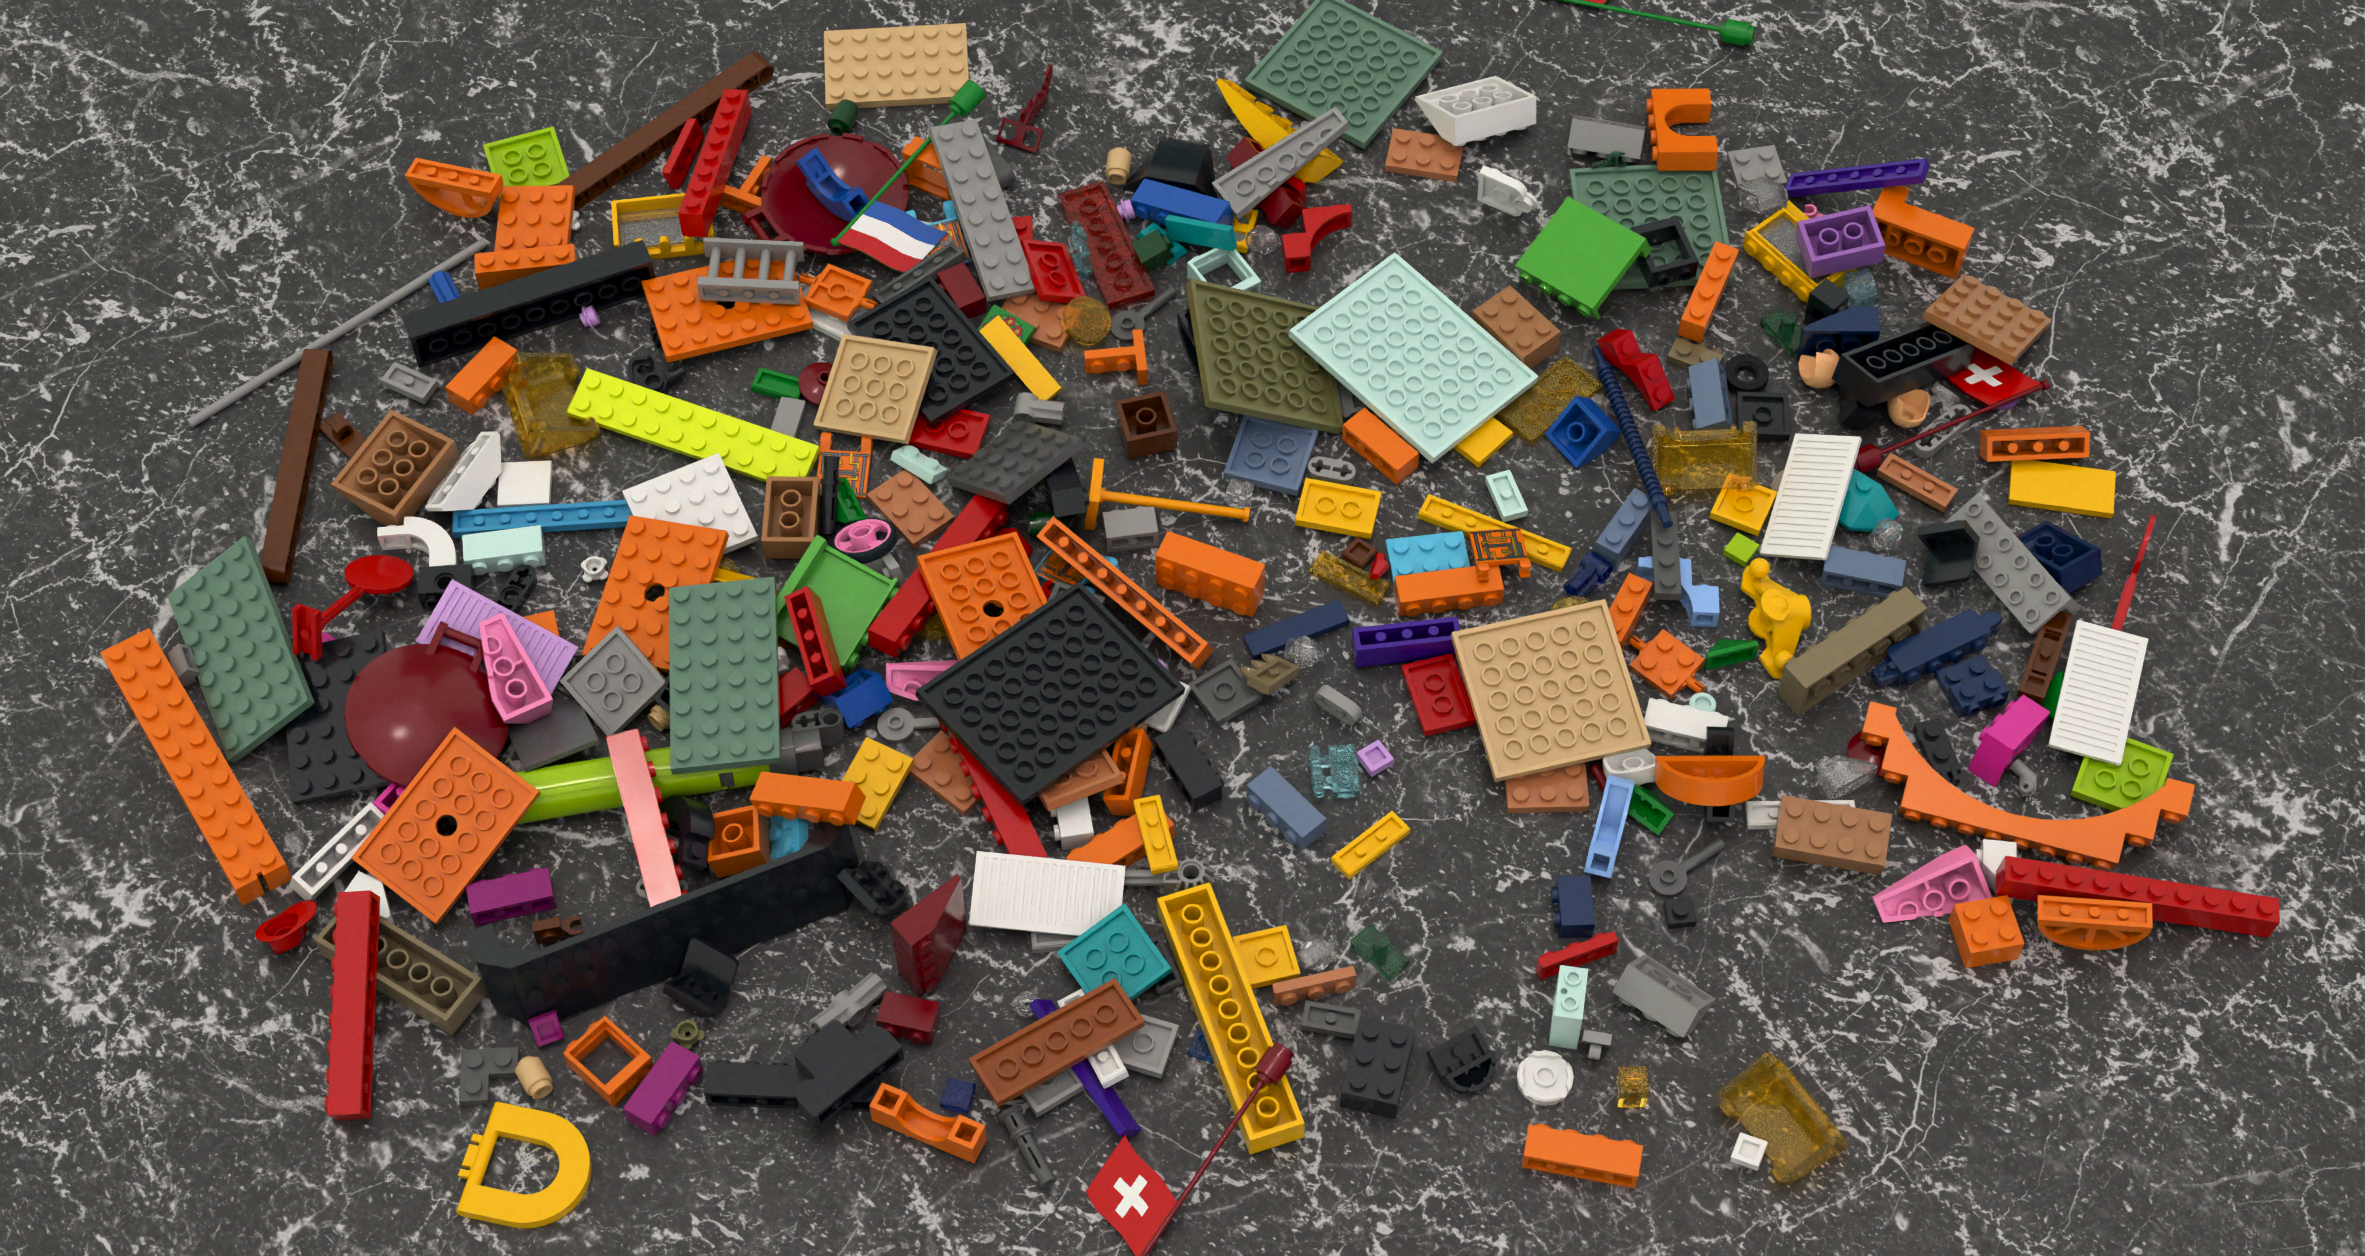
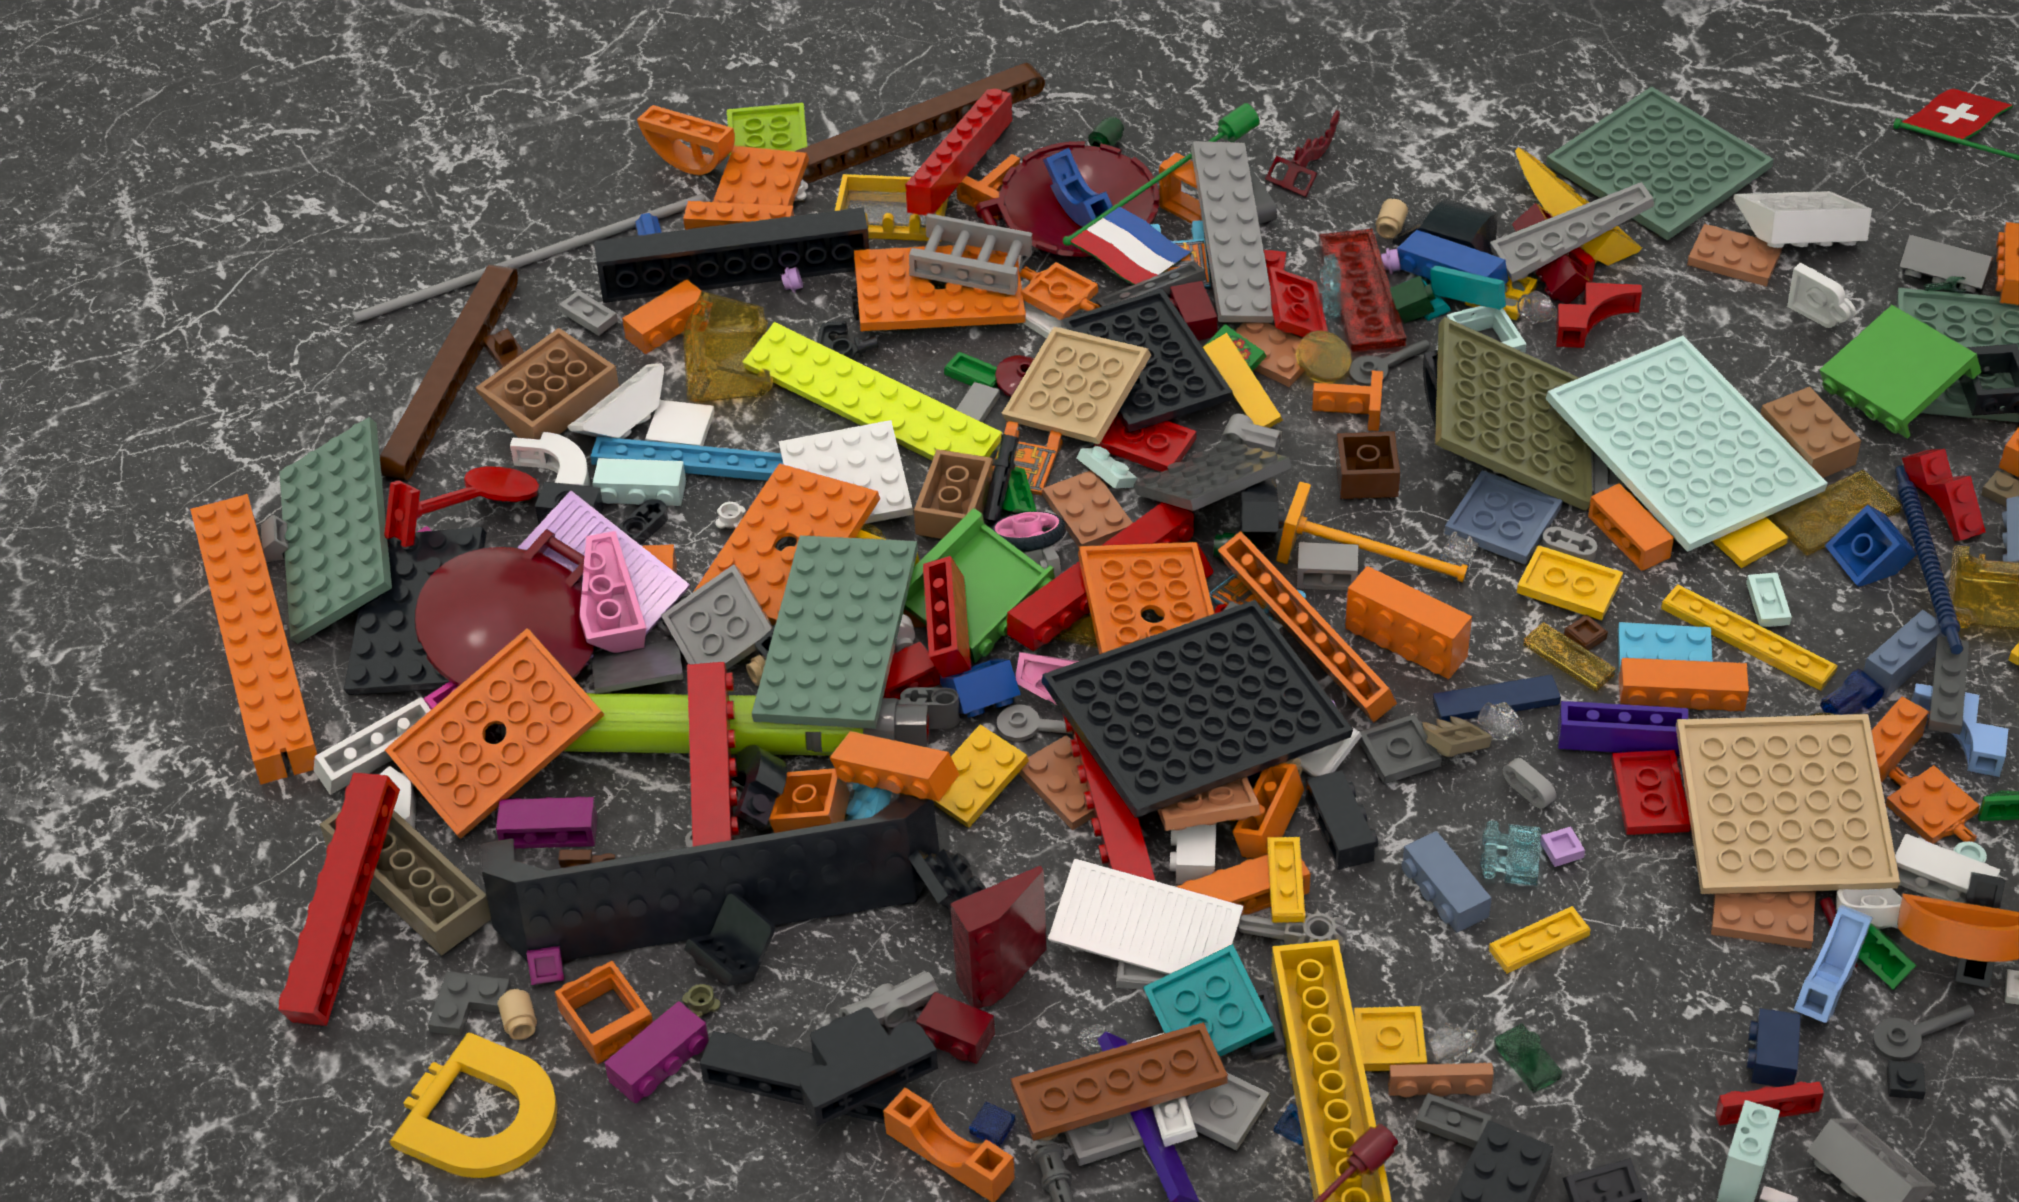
camera: 15 degrees right, 10 degrees down
(288, 927) = (298, 814): red piece -> none
(683, 153) = (928, 142): red plate -> none
(895, 65) = (1171, 95): tan plate -> none
(1379, 566) = (1606, 648): red bar -> none
(1499, 548) = (1751, 649): flag -> none

